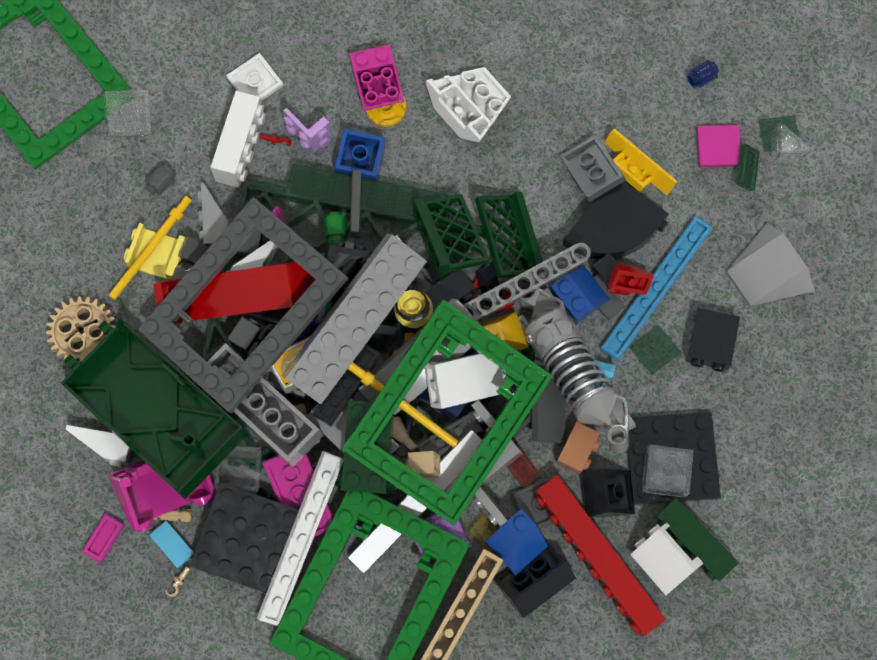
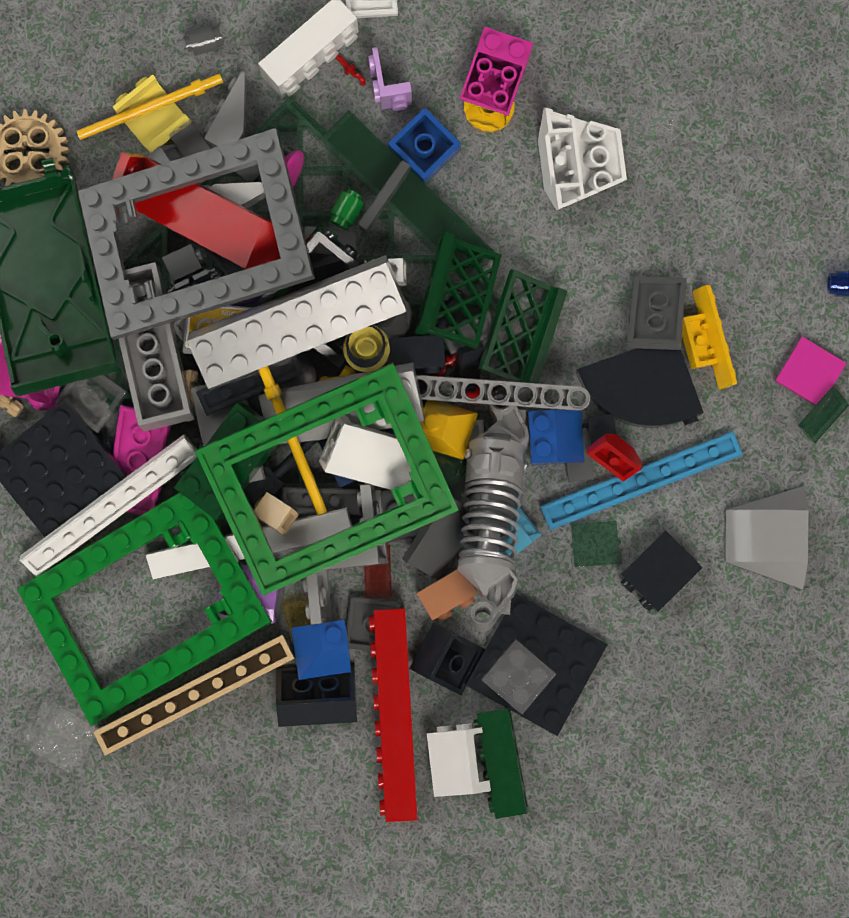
camera: 35 degrees right, 10 degrees up
(401, 434) = (273, 467): dark tan cone -> none

